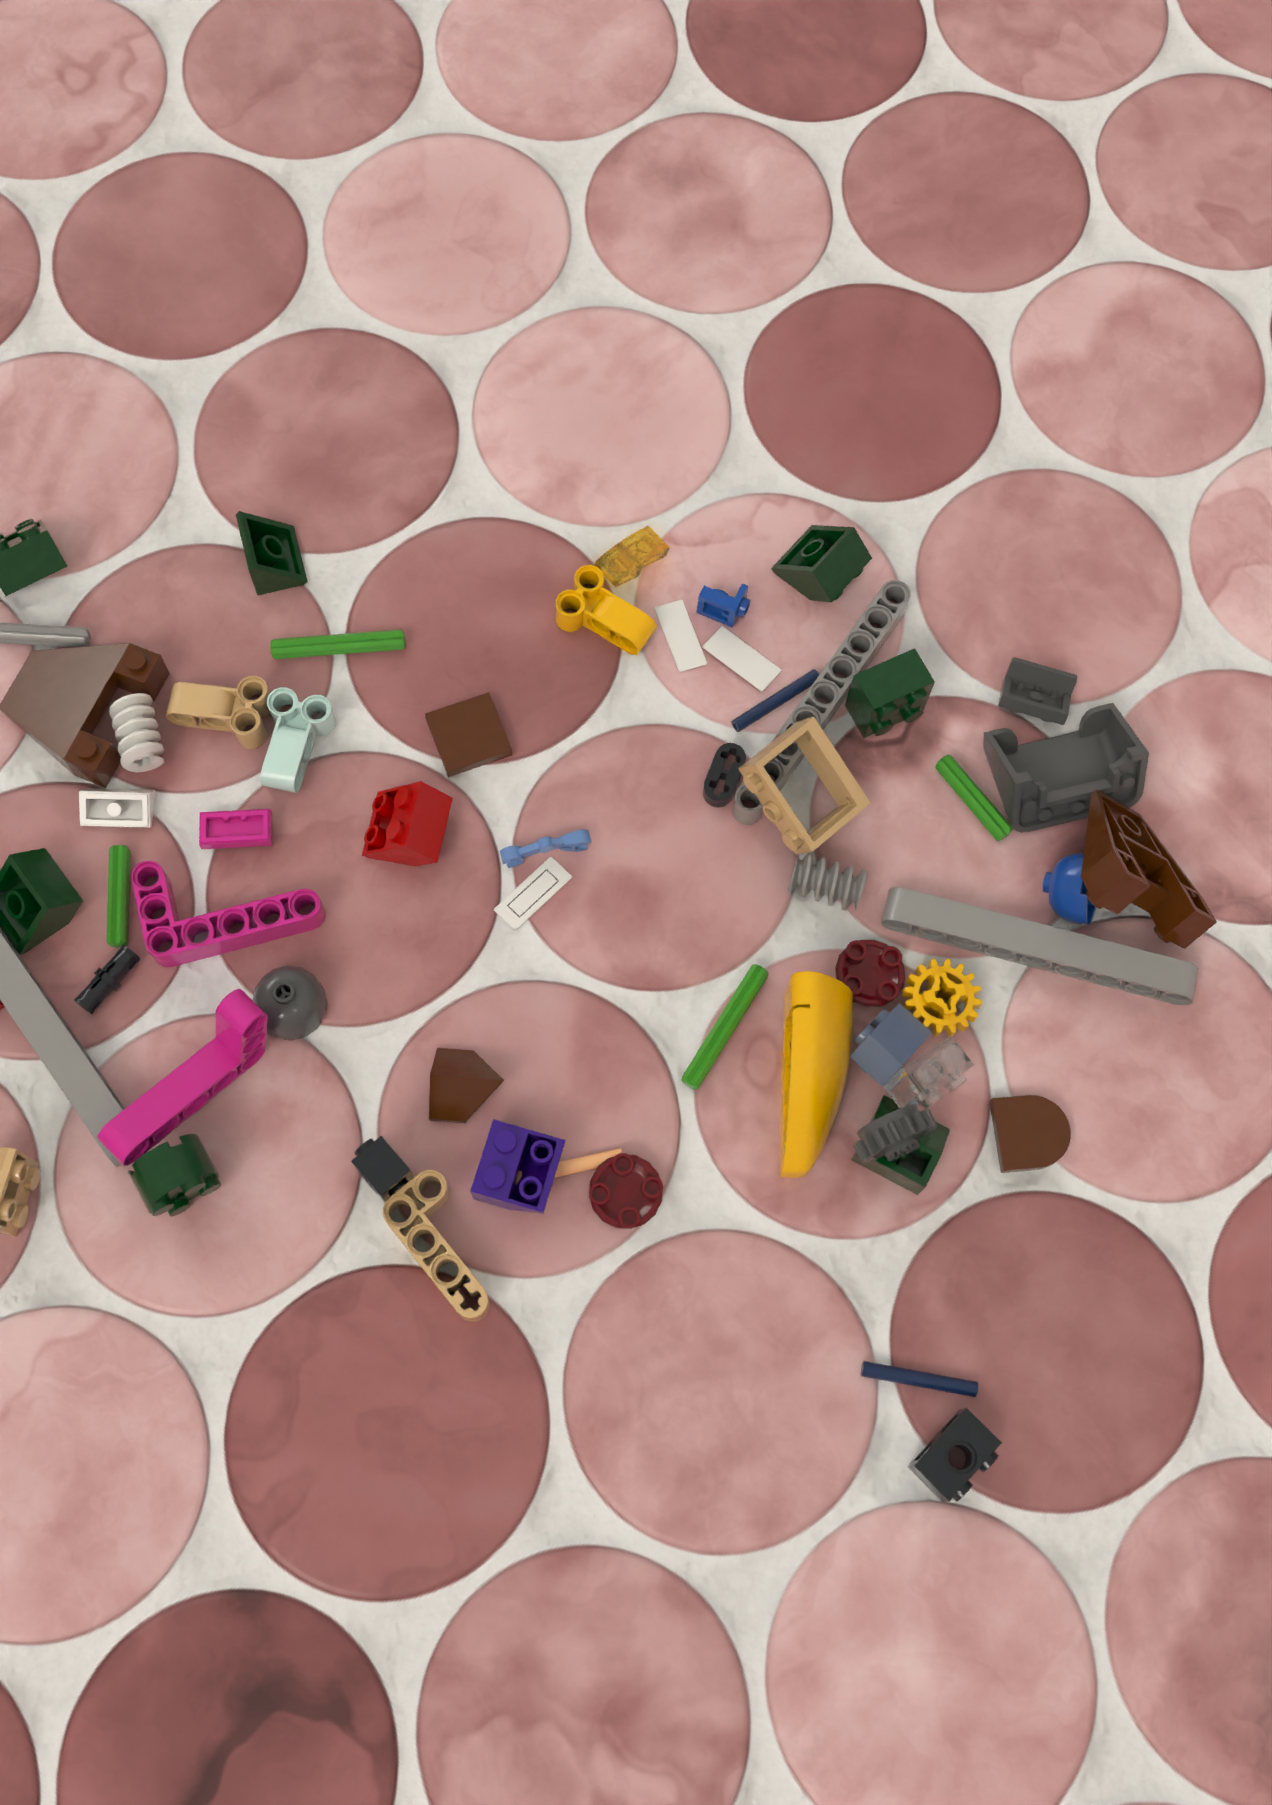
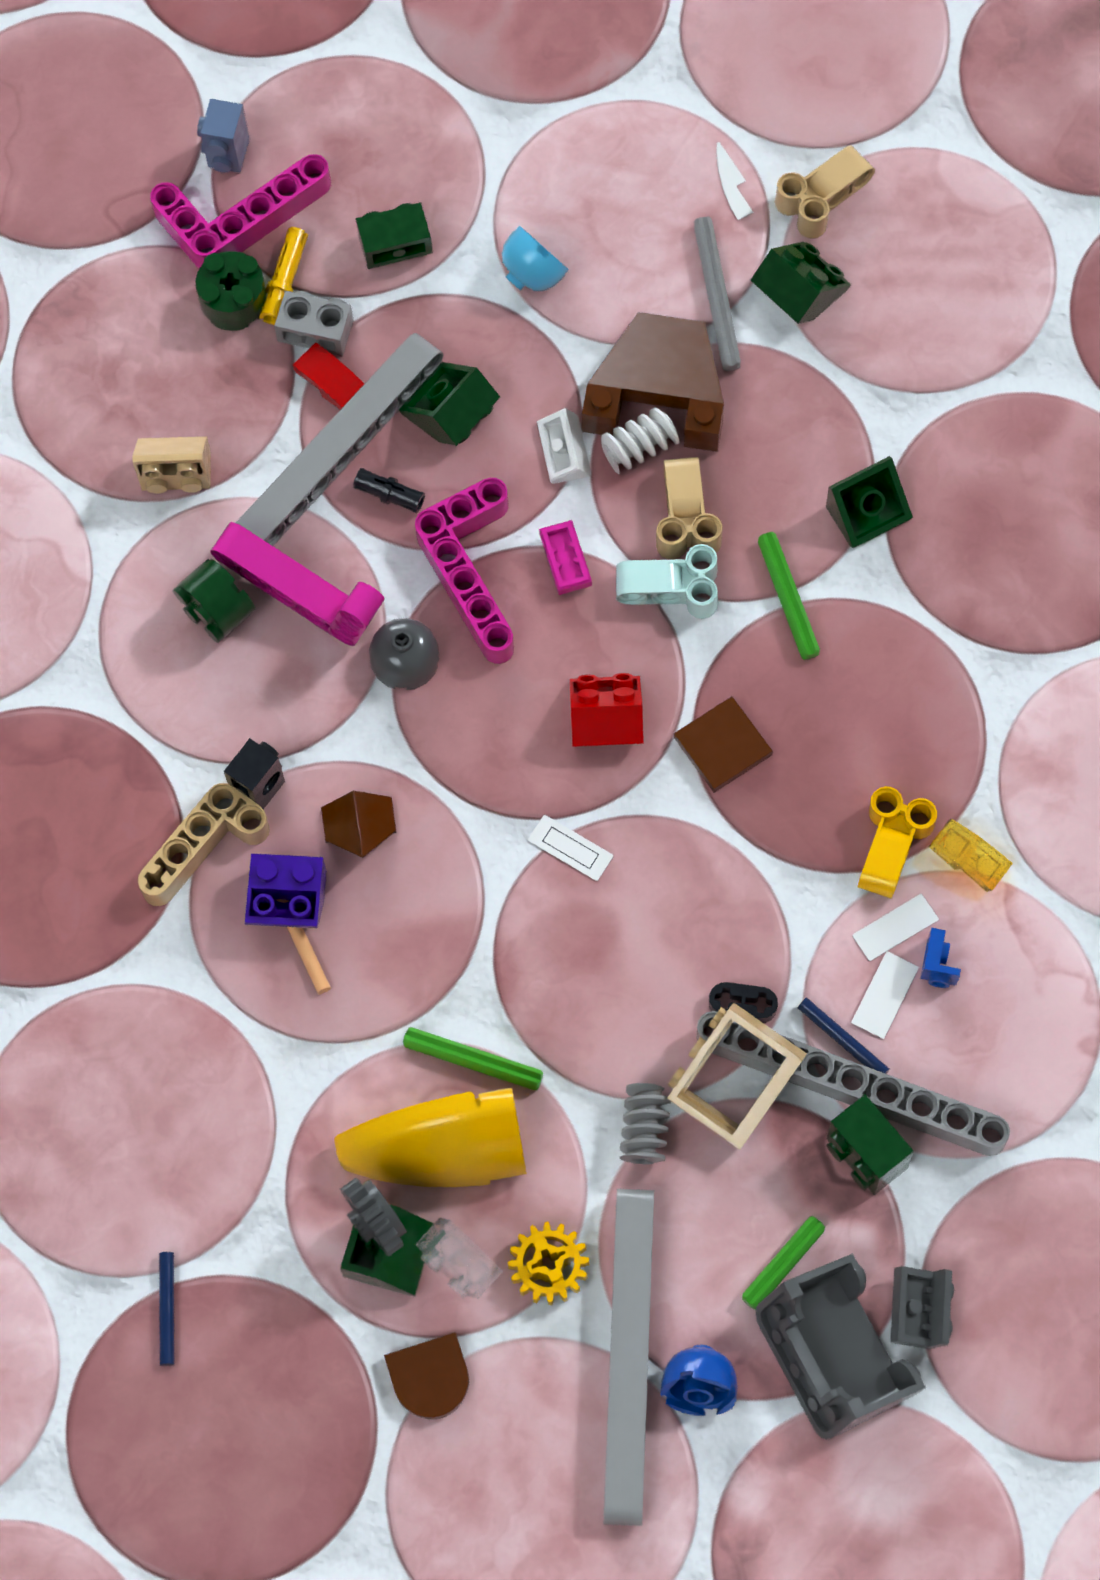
camera: 85 degrees right, 0 degrees up
(118, 896) = (470, 475): bright green axle -> none
(573, 841) = (629, 868): medium blue piece -> none
(625, 1191) = (288, 999): dark red dish -> none
(823, 562) = (1017, 1052): dark green slope -> none
(871, 972) = (561, 1189): dark red dish -> none
(888, 1043) = (481, 1213): sand blue brick -> none
(933, 1464) = (87, 1331): black brick -> none
(1131, 865) = (742, 1432): reddish brown wedge -> none

